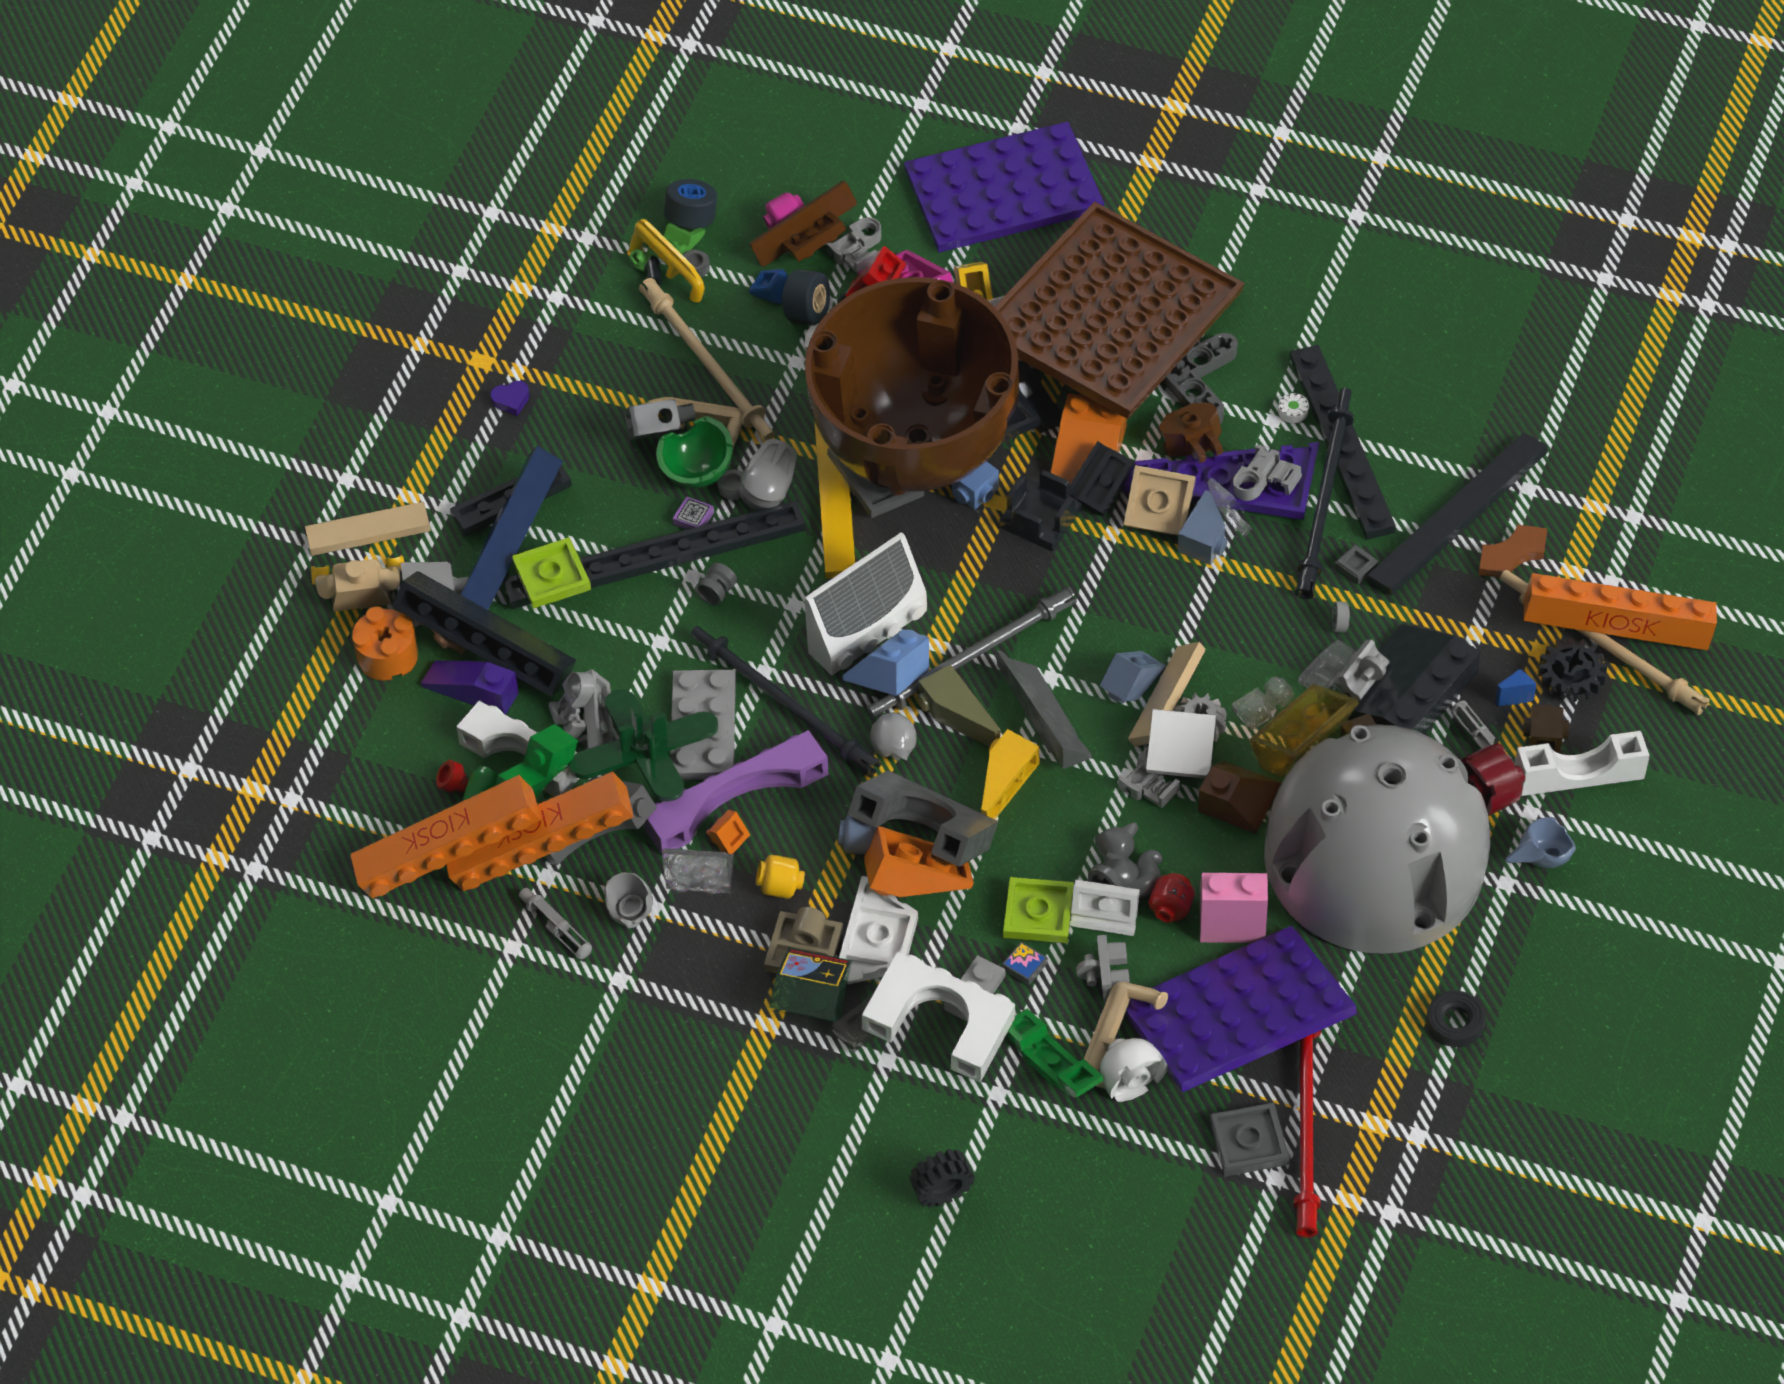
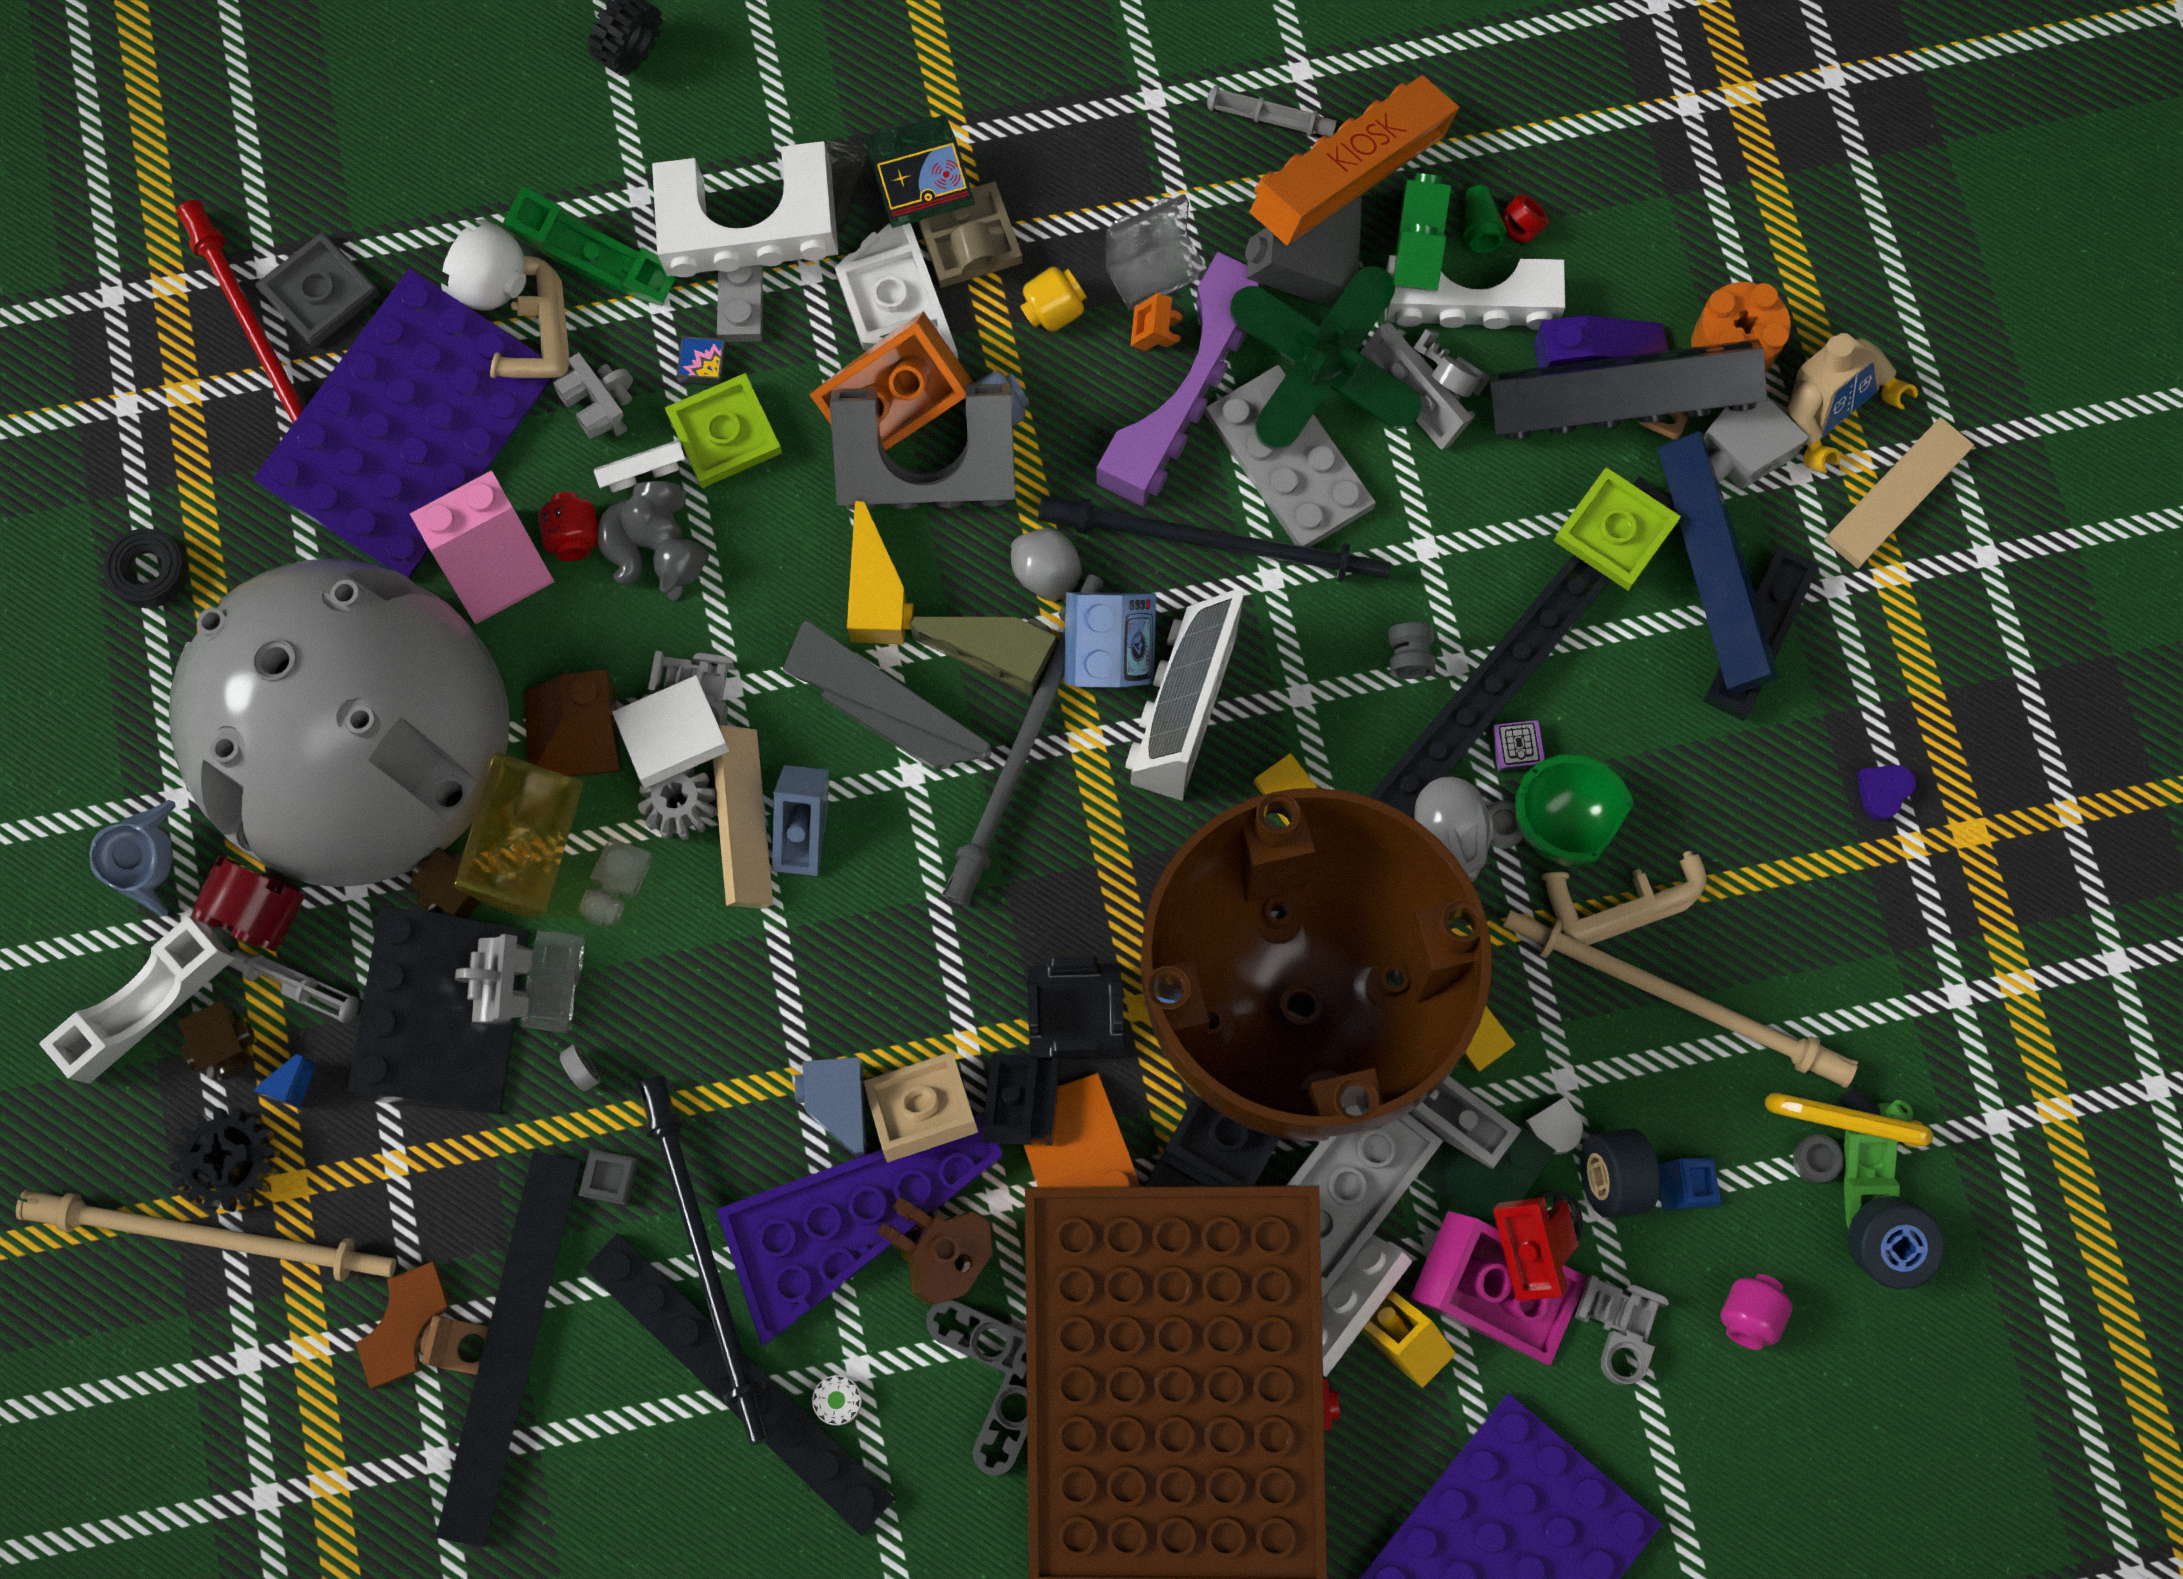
camera: 145 degrees right, 20 degrees up
(445, 837) = (1452, 95): orange brick -> none
(628, 899) = (1203, 171): light grey hair -> none
(643, 419) = (1665, 832): torso -> none
(806, 228) = (1698, 1293): reddish brown bracket -> none
(1224, 501) = (809, 1138): clear slope -> none
(1268, 467) = (798, 1243): light grey piece -> none
(1495, 526) = (442, 1341): none -> medium nougat bracket
(1620, 611) = (186, 1274): orange brick -> none

